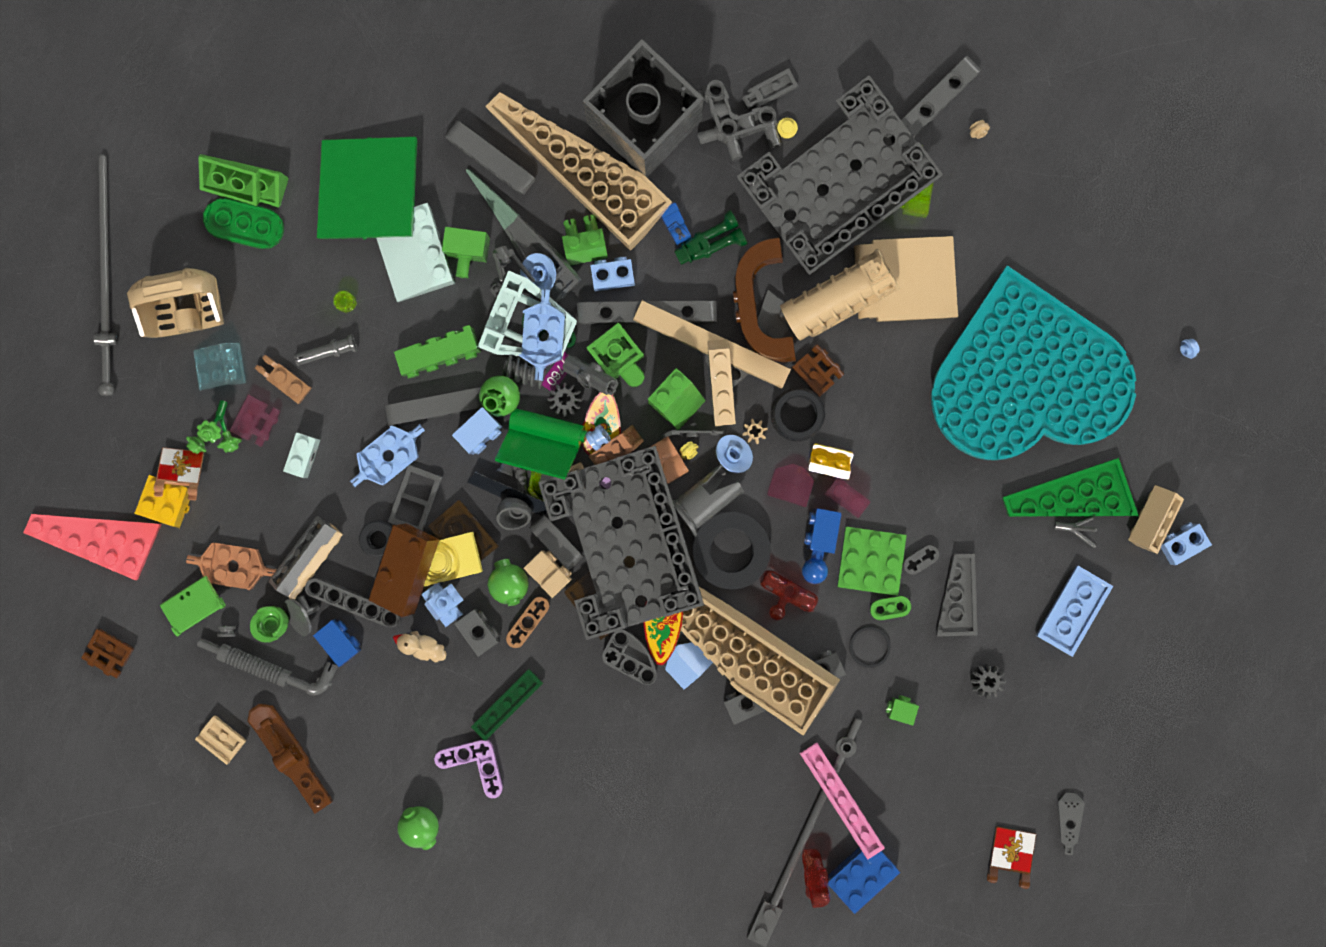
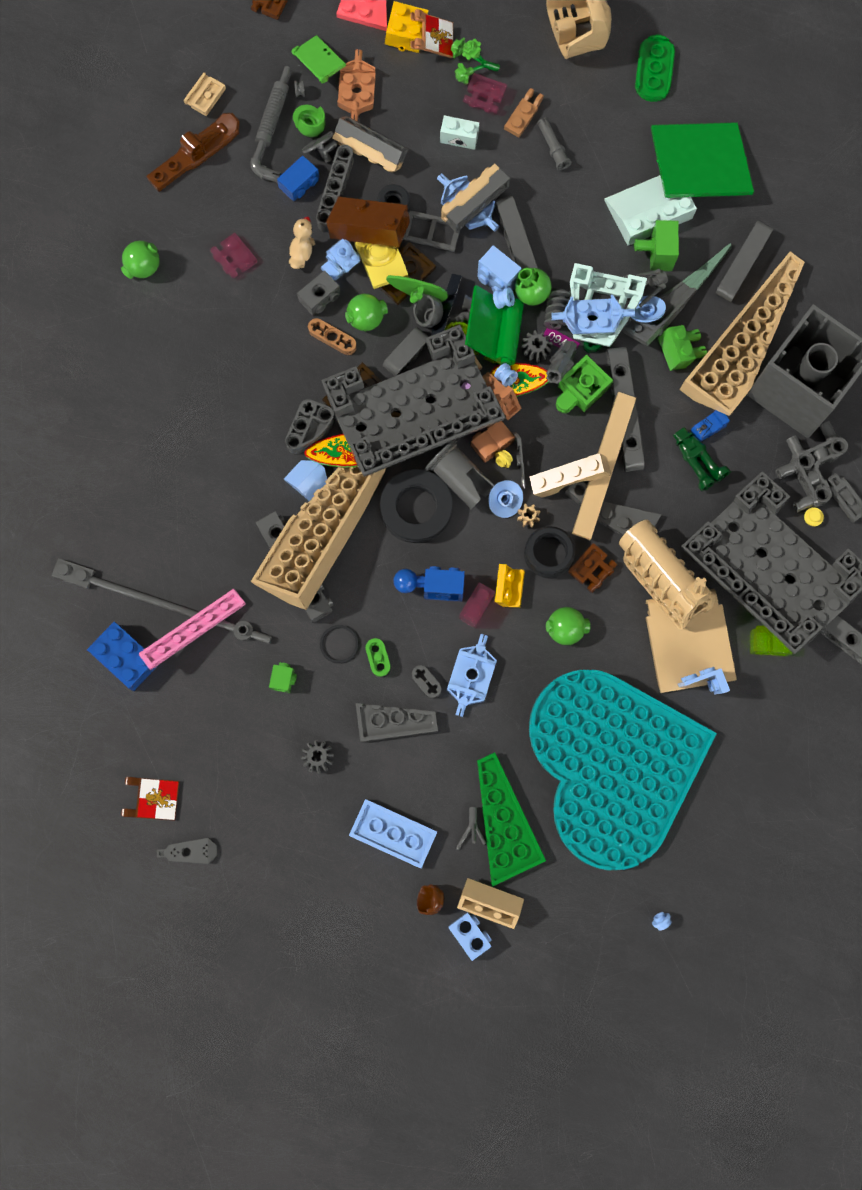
camera: 80 degrees right, 10 degrees down
(219, 365) = (529, 61): clear light blue bracket -> none
(241, 181) = (691, 61): bright green slope -> none
(349, 301) = (596, 158): clear neon green wheel -> none
(386, 447) = (475, 197): none -> dark grey piece
(417, 717) = (238, 253): none -> clear pink plate
(437, 352) = (565, 234): bright green wedge -> none
(481, 759) = (206, 309): lavender beam -> none
(491, 519) = (416, 288): none -> bright green shield
(506, 704) = (256, 325): dark green plate -> none
(510, 429) = (503, 298): none -> light blue wheel
(548, 573) = (377, 345): tan brick -> none
(613, 281) = (650, 376): light blue brick -> none
(676, 399) = (550, 435): bright green slope -> none
(757, 257) = (653, 492): reddish brown arch -> none
(779, 585) = (386, 551): clear red piece -> none
(791, 485) = (482, 556): clear pink slope -> none
(815, 878) = (118, 610): clear red piece -> none
(871, 561) = (420, 636): bright green plate -> none
(879, 405) = (567, 626): none -> bright green brick
(902, 507) = (467, 690): none -> light blue plate
(949, 268) = (716, 683): none -> light blue bracket
(979, 129) = (842, 693): tan plate -> none
(1145, 580) = (430, 899): none -> reddish brown hair

